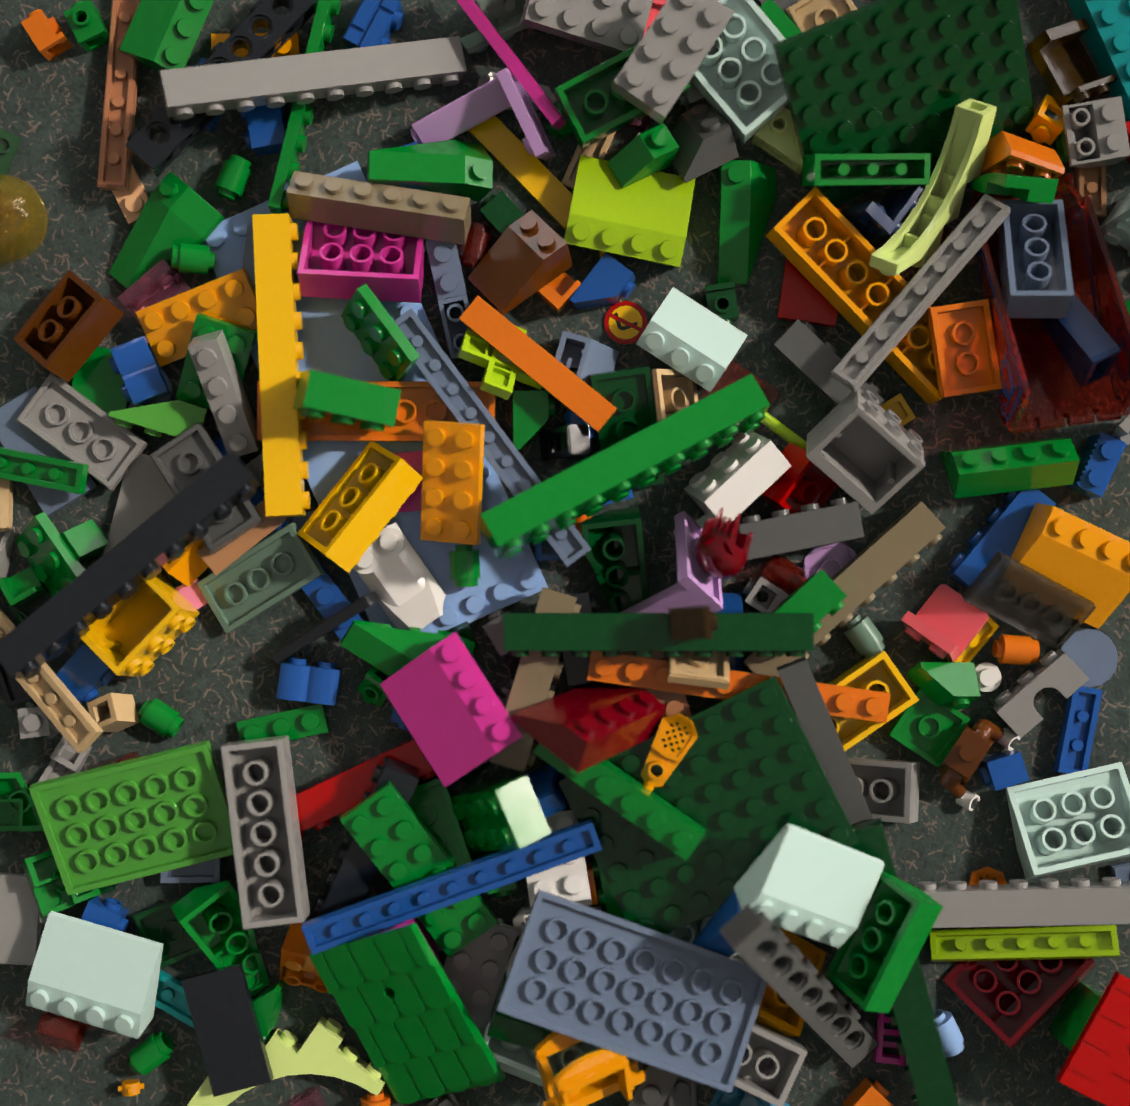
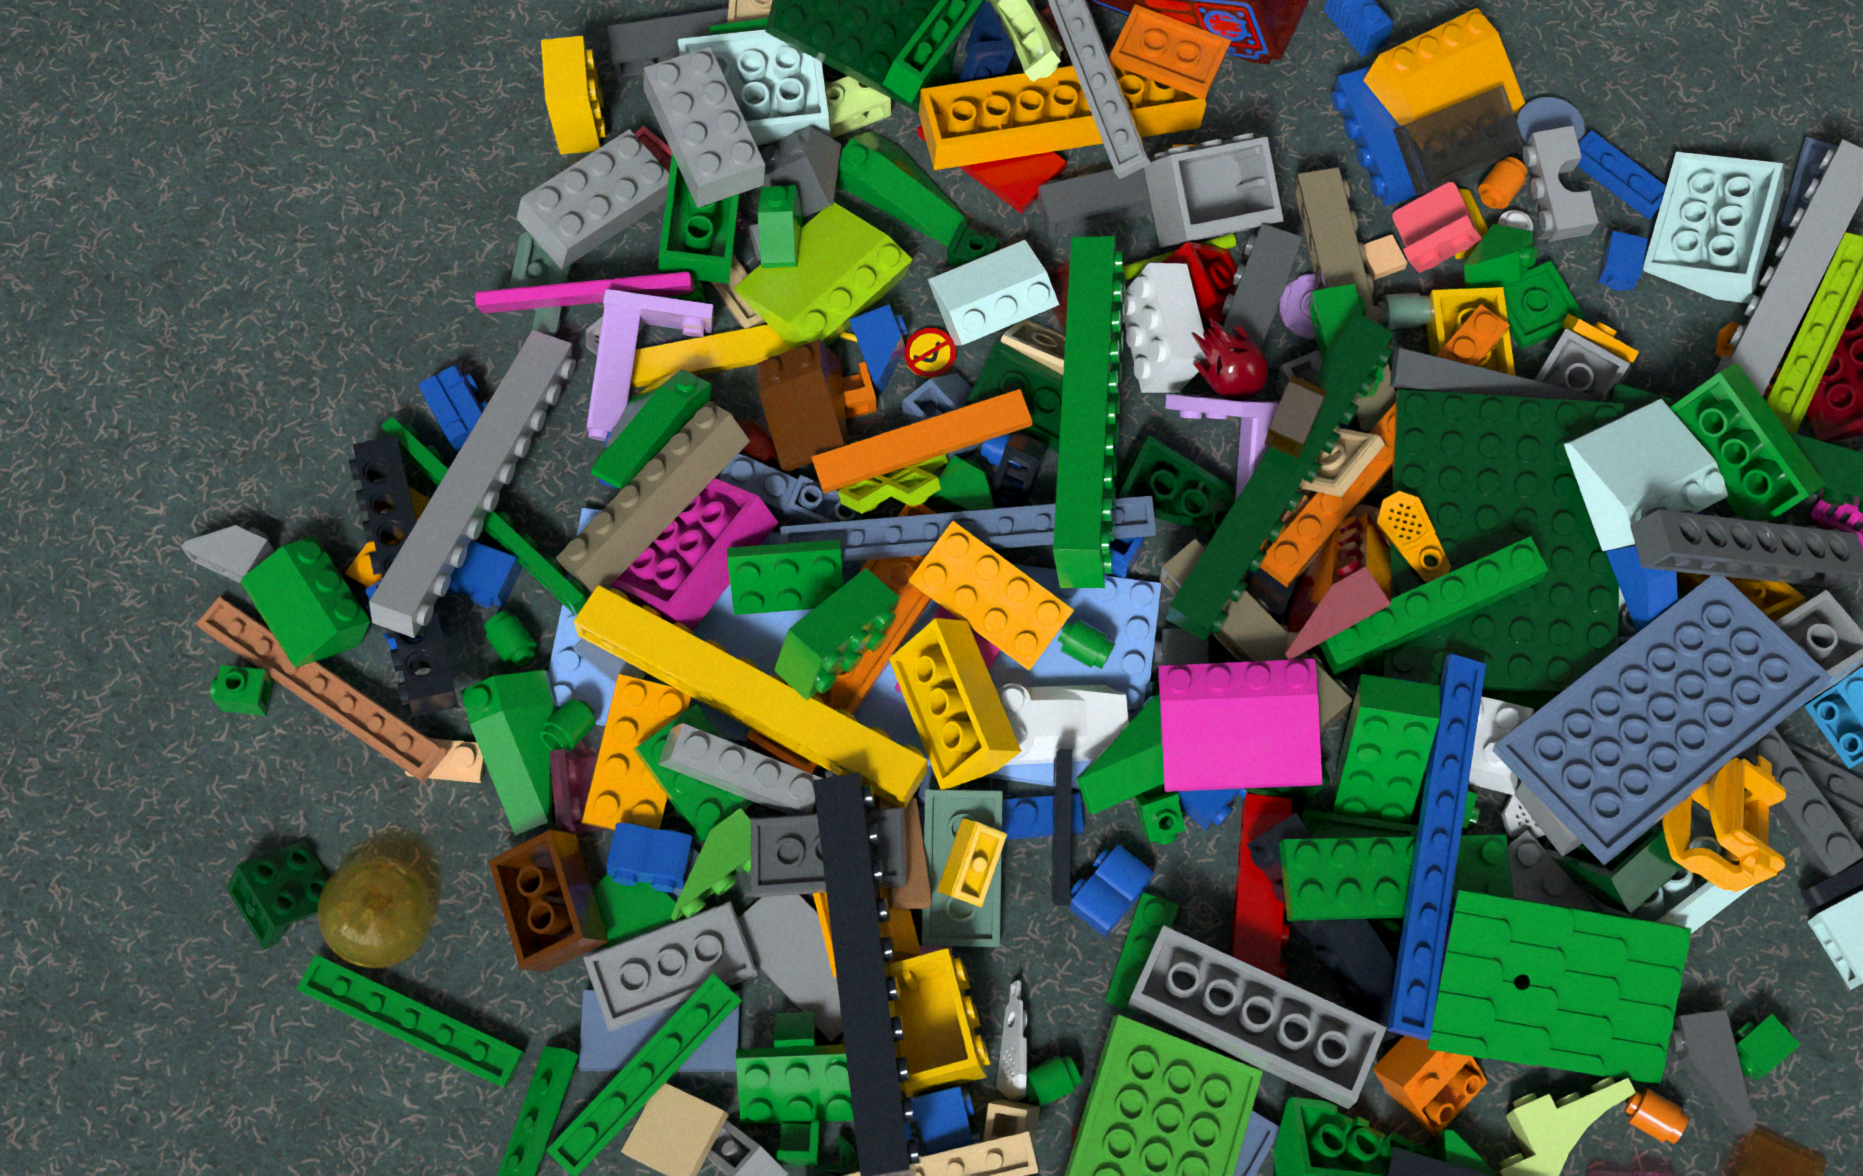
camera: 55 degrees left, 20 degrees down
(46, 34) = (218, 739): orange brick -> none
(166, 682) = (1013, 1053): none -> white piece
(262, 583) = (972, 862): none -> yellow slope
(499, 212) = (740, 398): dark green brick -> none
(783, 574) = (1290, 346): clear red brick -> none
(902, 596) = (1384, 257): none -> light nougat tile
(926, 788) = (1601, 336): none -> light orange plate
(968, 754) = (1592, 283): reddish brown torso -> none
(1010, 466) = (1314, 81): green slope -> none

